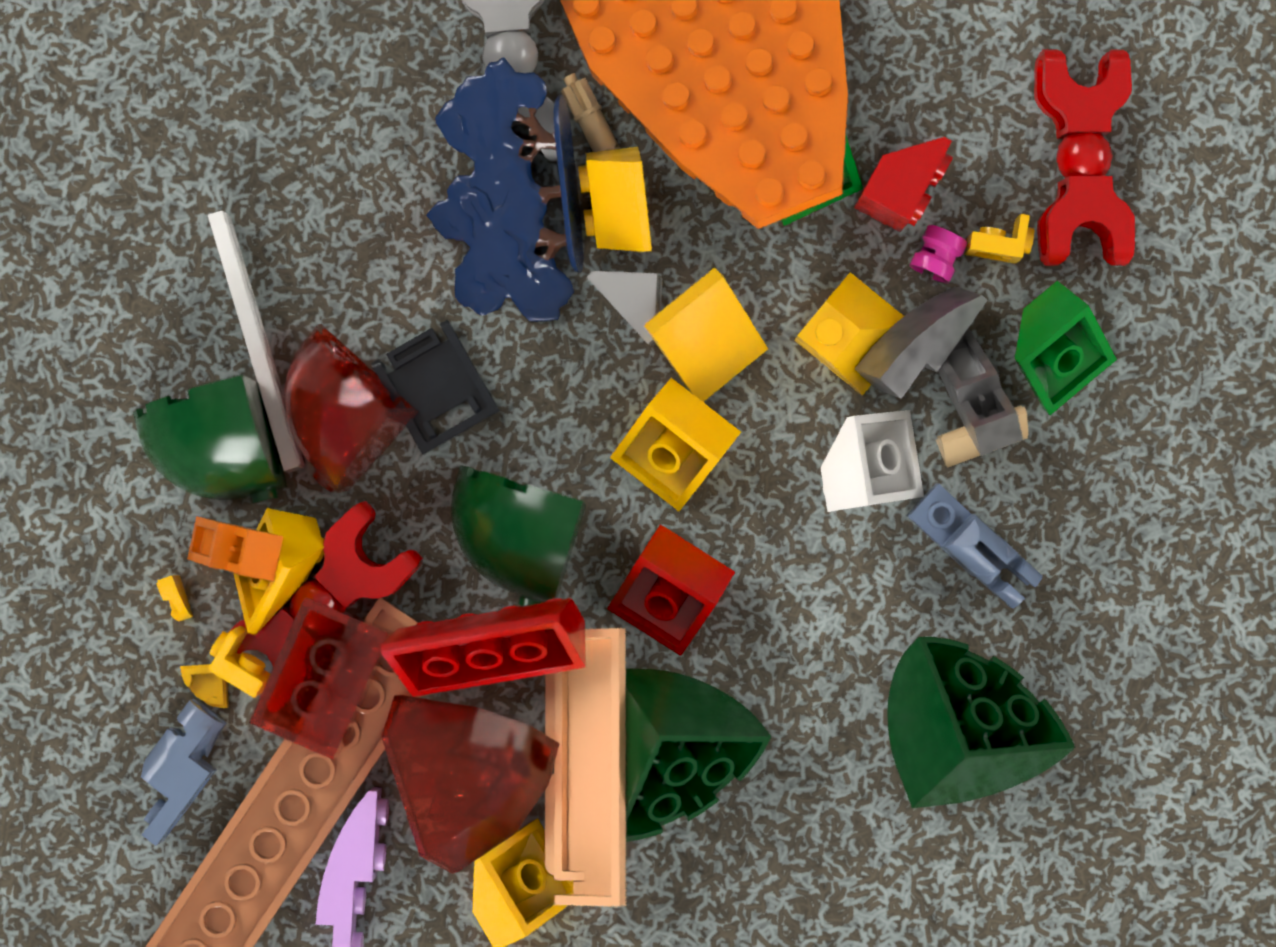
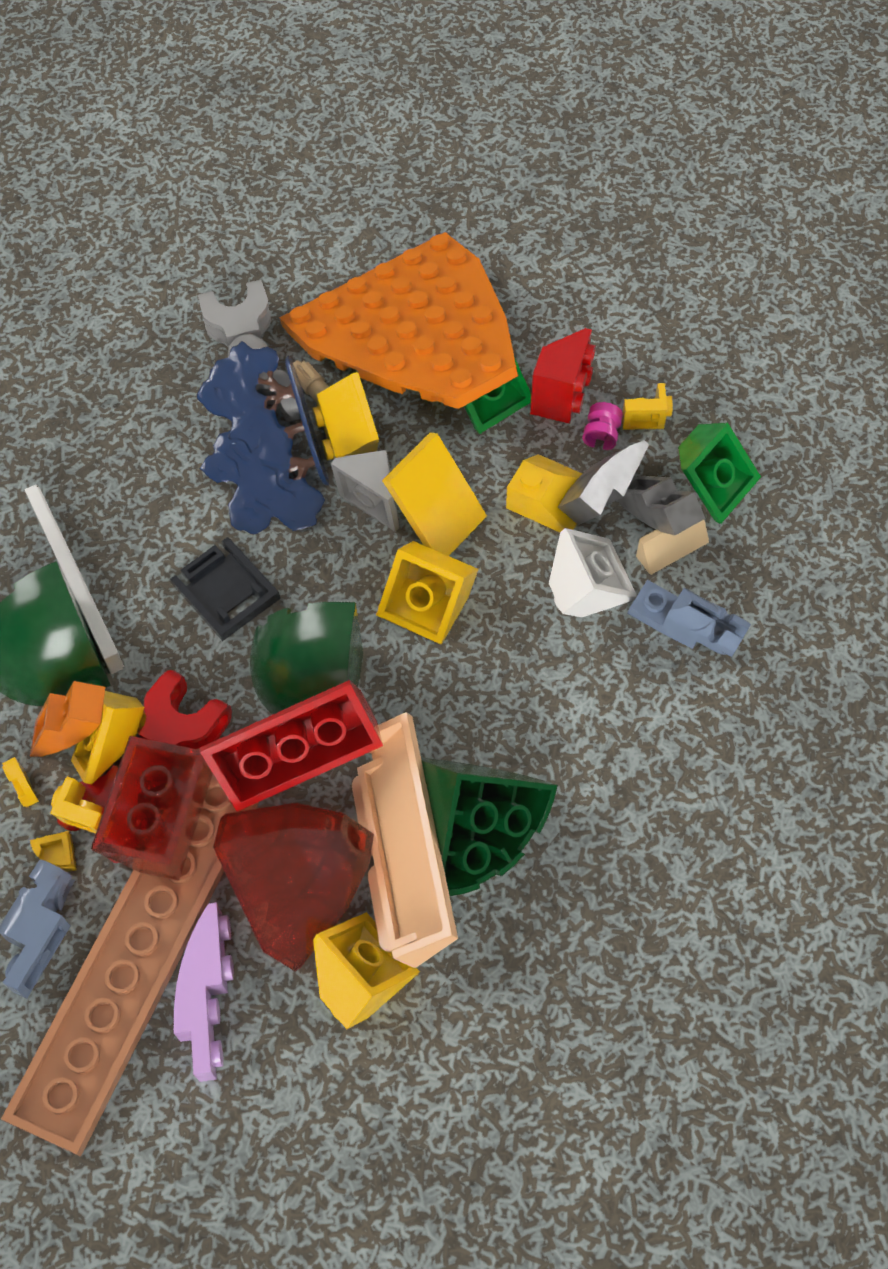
camera: 10 degrees left, 25 degrees down
(339, 410) = (150, 606): clear red brick -> none
(671, 590) = (447, 698): red slope -> none
(966, 725) = (722, 754): dark green brick -> none
(1084, 157) = (703, 367): red piece -> none

